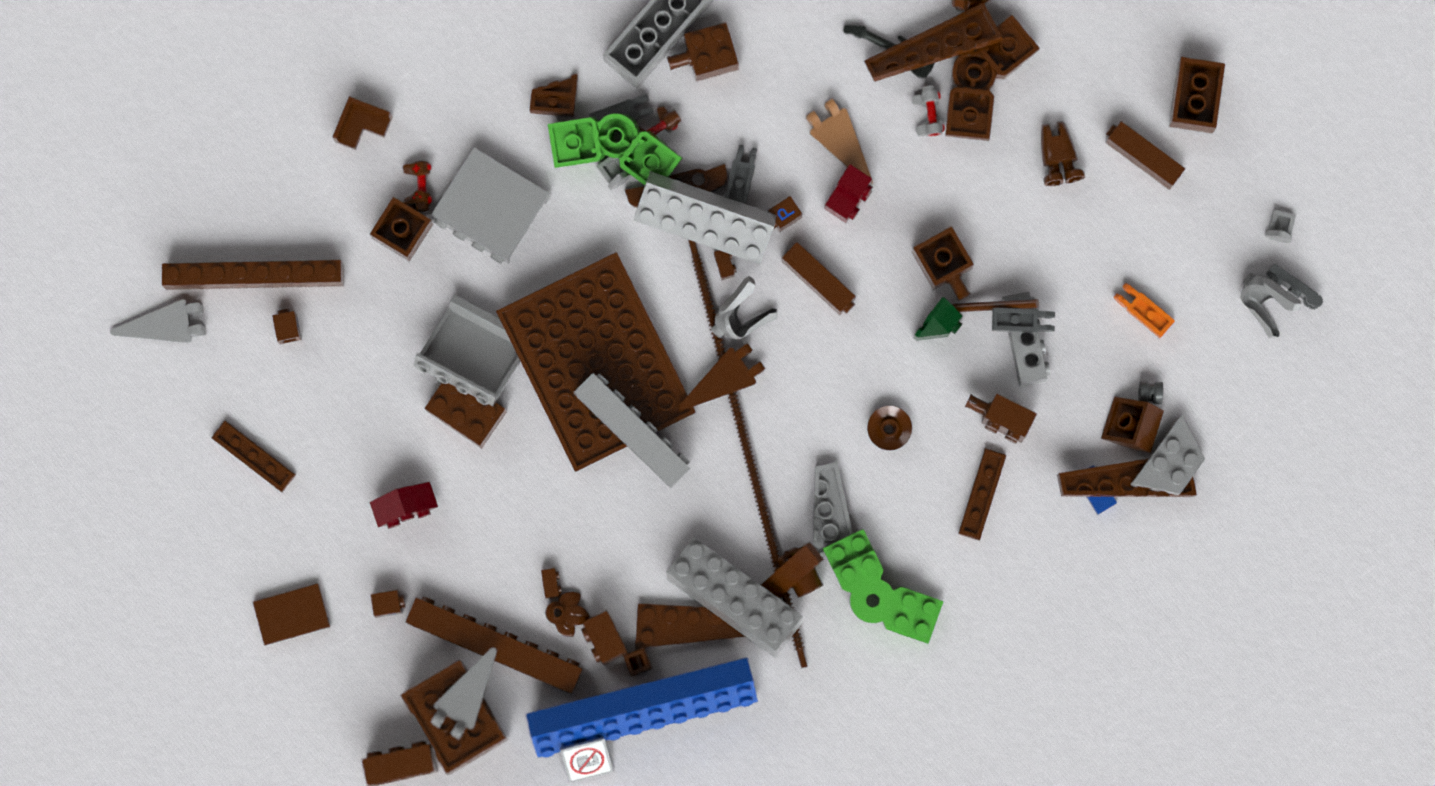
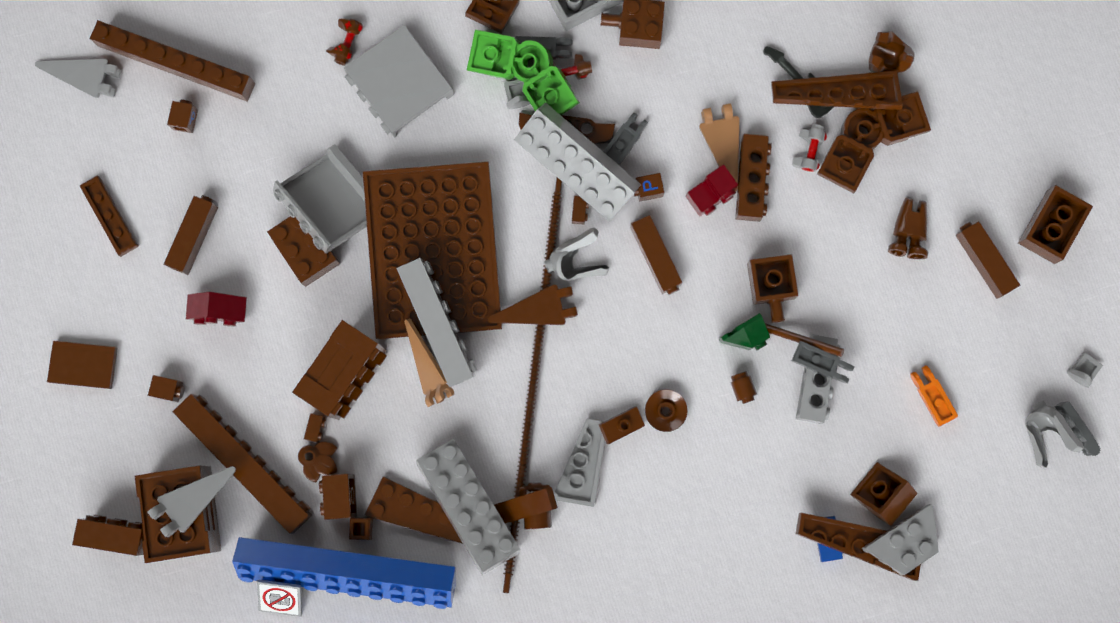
camera: 25 degrees right, 0 degrees up
(346, 441) = (191, 234): none -> reddish brown brick
(401, 229) = (313, 70): reddish brown brick -> none
(557, 515) = (340, 371): none -> reddish brown container
(639, 479) = (429, 372): none -> medium nougat flag
(852, 459) = (621, 425): none -> reddish brown plate
(880, 130) = (744, 208): none -> reddish brown brick
(898, 608) = (610, 575): bright green plate -> none
(956, 375) = (743, 387): none -> reddish brown brick
(982, 494) = (724, 502): reddish brown tile -> none
(1004, 417) = (772, 442): reddish brown brick -> none
(1150, 392) = (911, 471): dark grey wheel -> none

